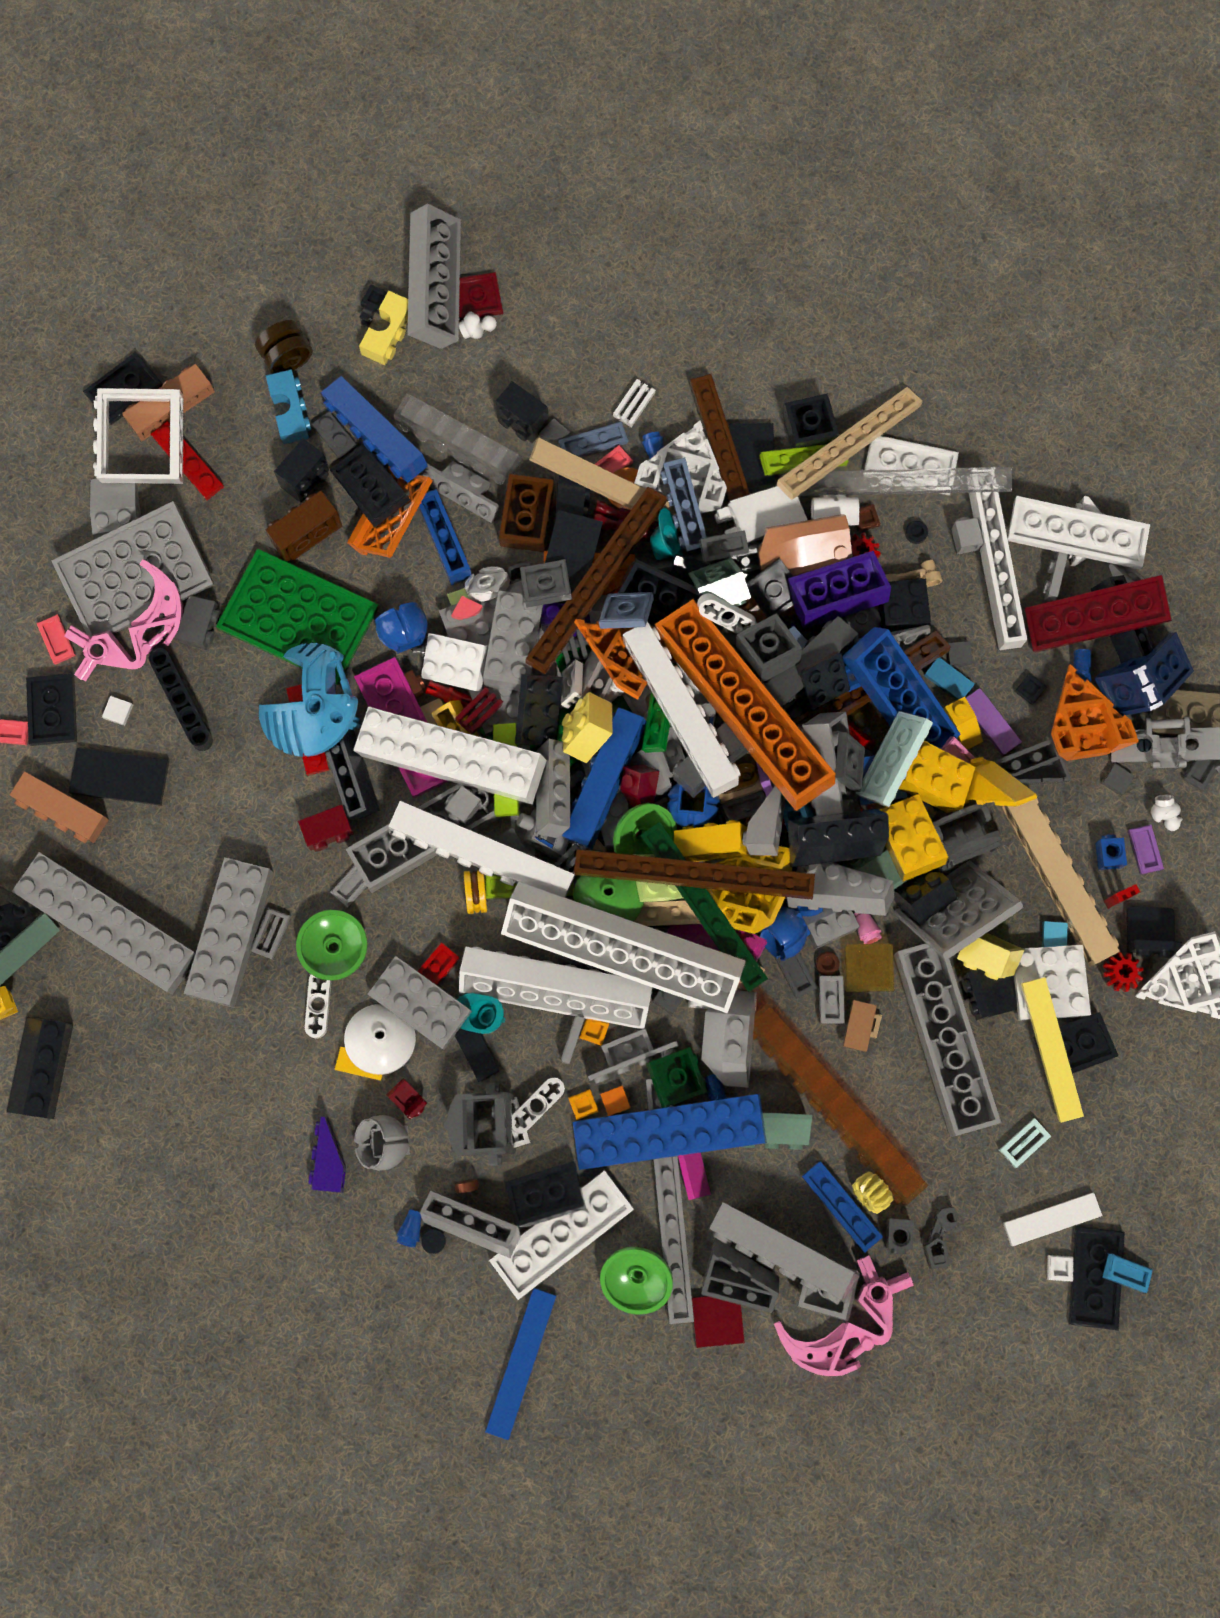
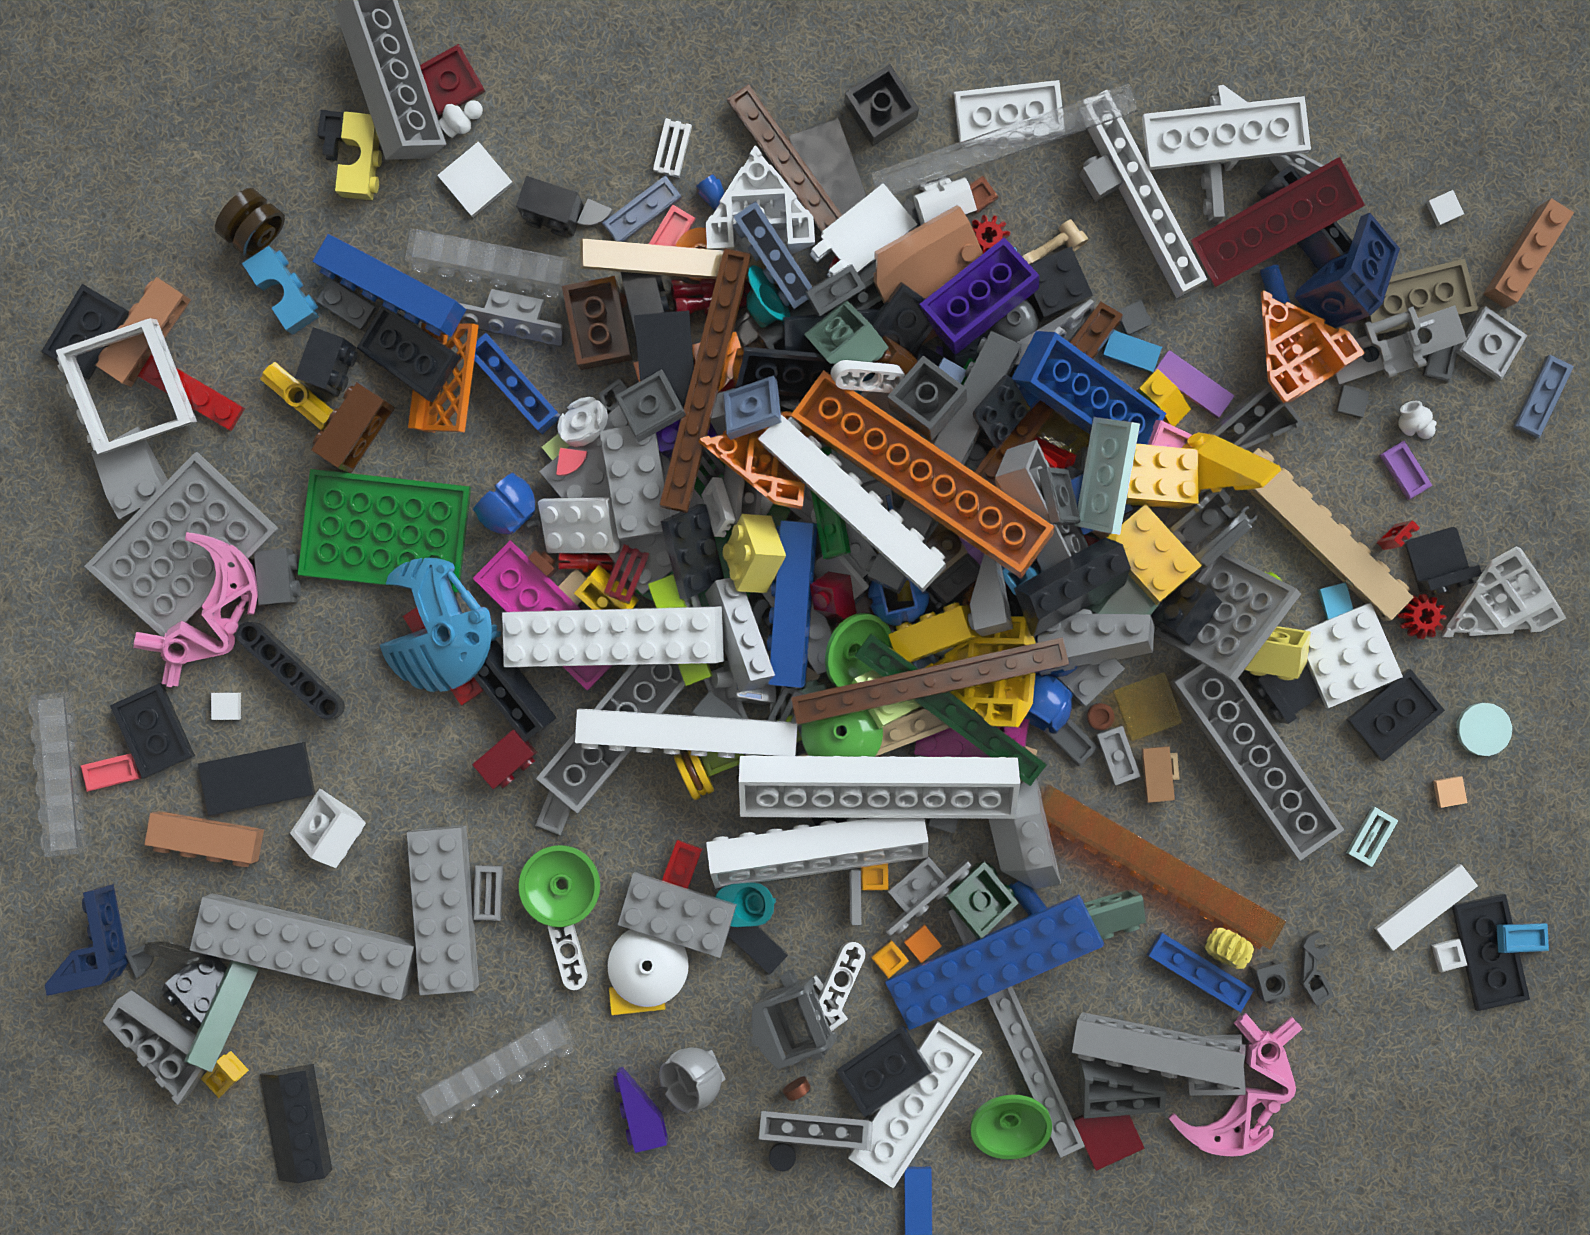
camera: 20 degrees left, 10 degrees up
(53, 636) = (120, 645): coral tile -> none
(160, 835) = (327, 829): none -> white slope
(221, 1080) = (495, 1069): none -> clear brick
(263, 481) = (287, 386): none -> yellow piece
(407, 1099) = (701, 1020): dark red bracket -> none
(410, 1229) = (753, 1154): blue cone -> none
(462, 806) = (646, 689): light grey brick -> none
(471, 375) = (475, 179): none -> white tile
(694, 1175) = (1036, 998): dark pink tile -> none
(787, 459) = (887, 150): lime tile -> none
(849, 443) = (933, 114): tan plate -> none
(868, 931) = (1134, 667): bright pink cone -> none
(916, 532) = (1041, 191): black tile -> none
(1030, 689) = (1225, 331): black tile -> none
(1052, 1049) = (1373, 729): light yellow tile -> none
(1103, 1128) = (1450, 791): none -> light nougat tile
(1104, 860) = (1381, 490): blue brick -> none
(1147, 1085) = (1484, 729): none -> light aqua tile

